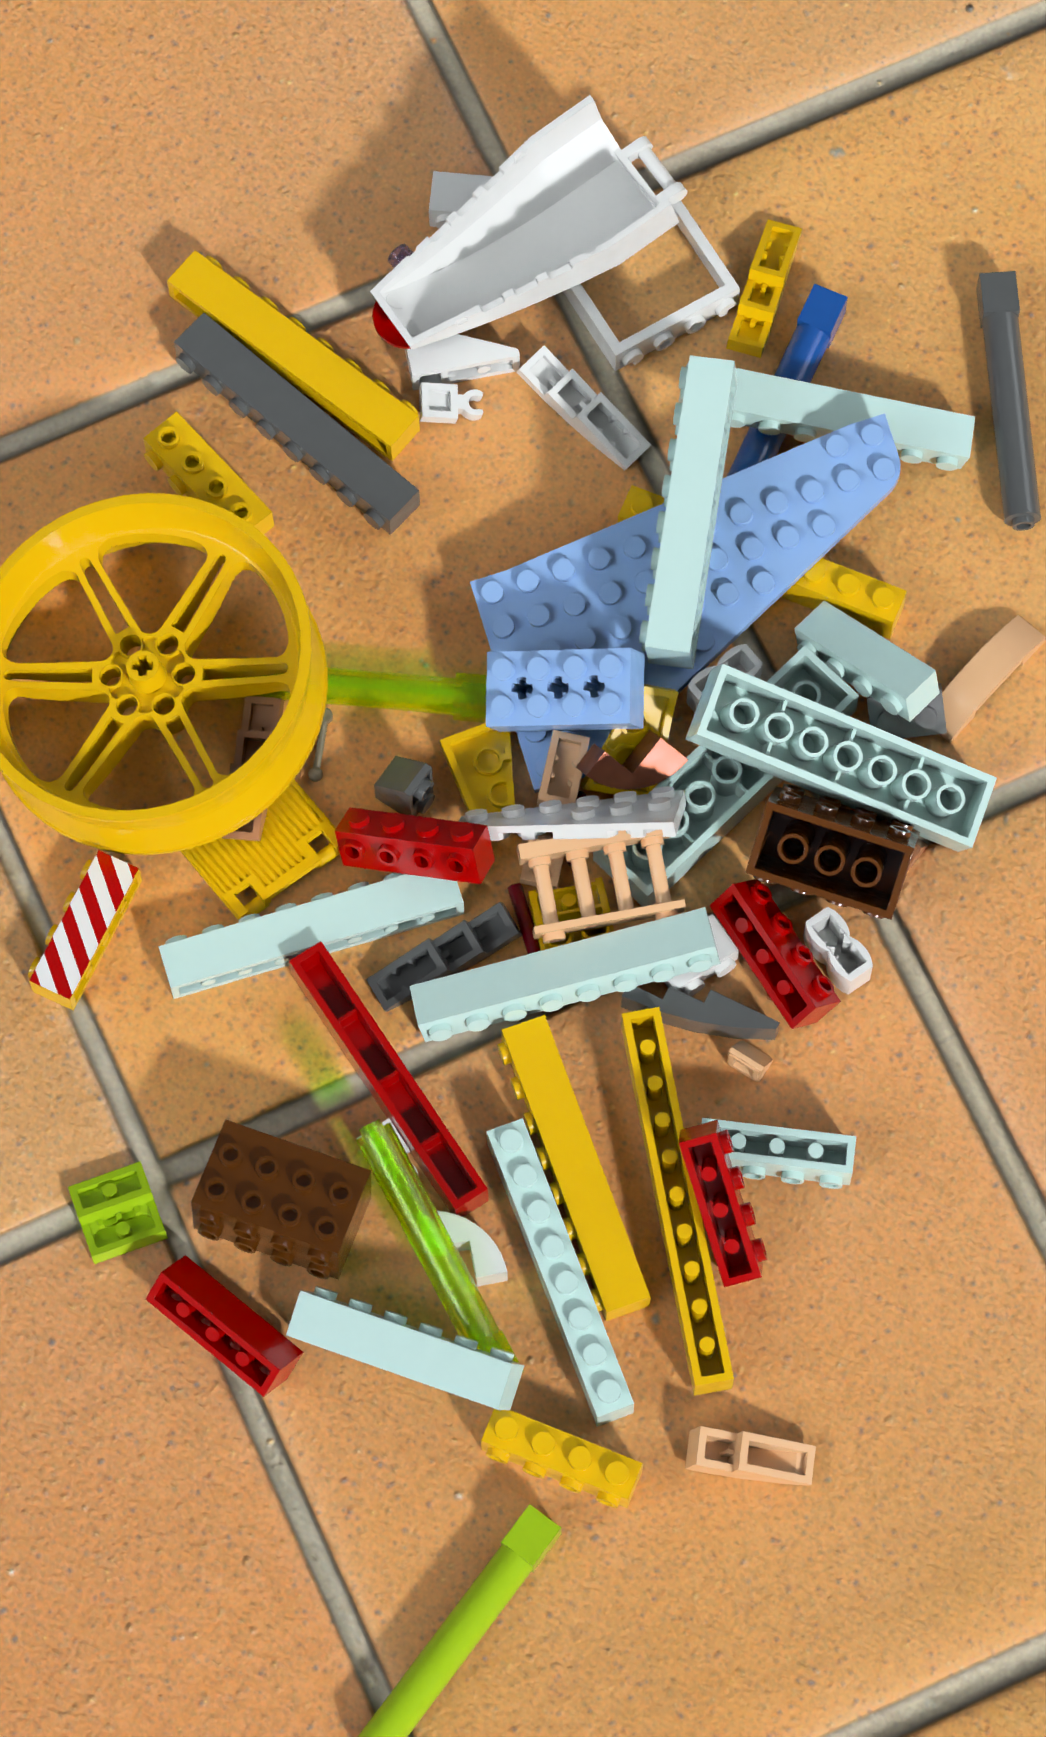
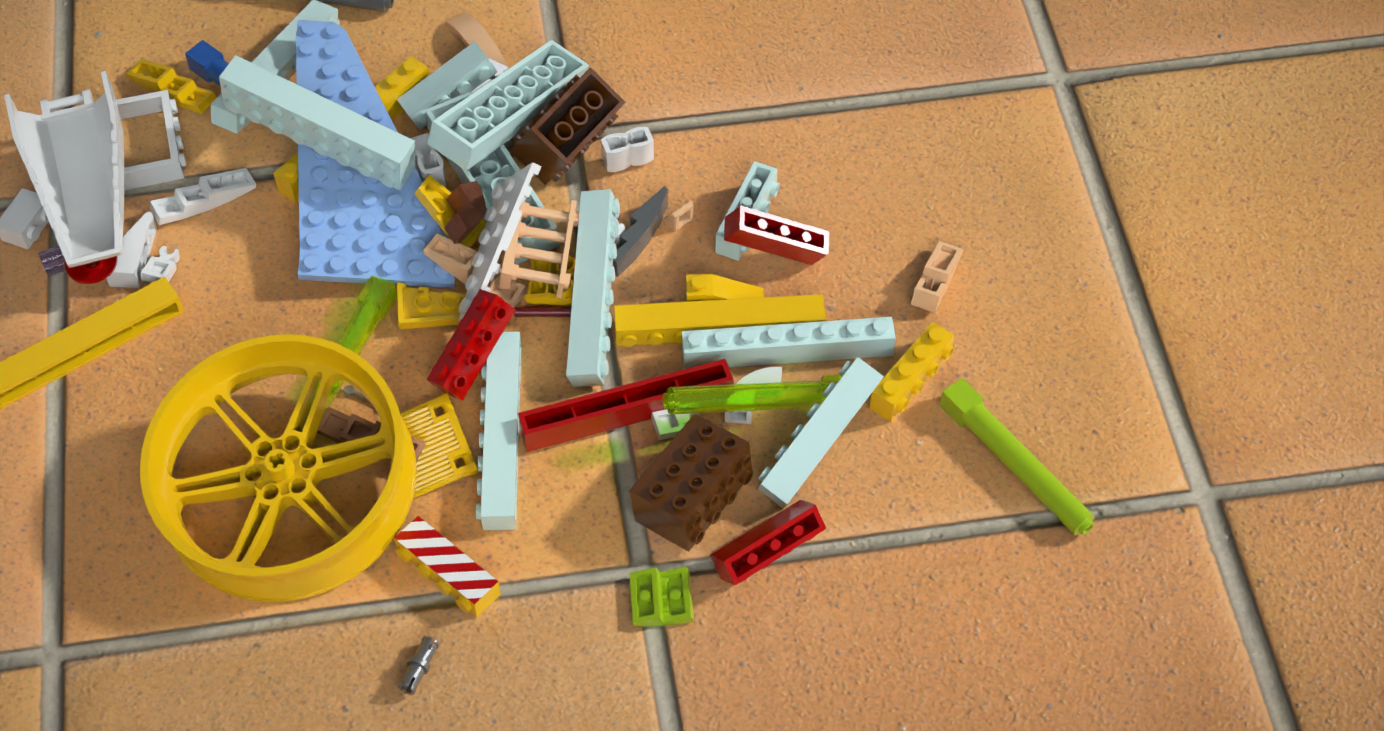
camera: 75 degrees left, 15 degrees down
(201, 472) = (127, 420): yellow brick -> none
(296, 424) = (129, 354): dark grey brick -> none
(406, 786) = (423, 345): dark grey slope -> none
(446, 955) = (548, 357): dark grey slope -> none
(579, 708) = (411, 242): light blue brick -> none
(621, 1159) = (713, 287): none -> yellow slope
(676, 1203) = (763, 267): yellow brick -> none
(775, 953) = (620, 179): red brick -> none

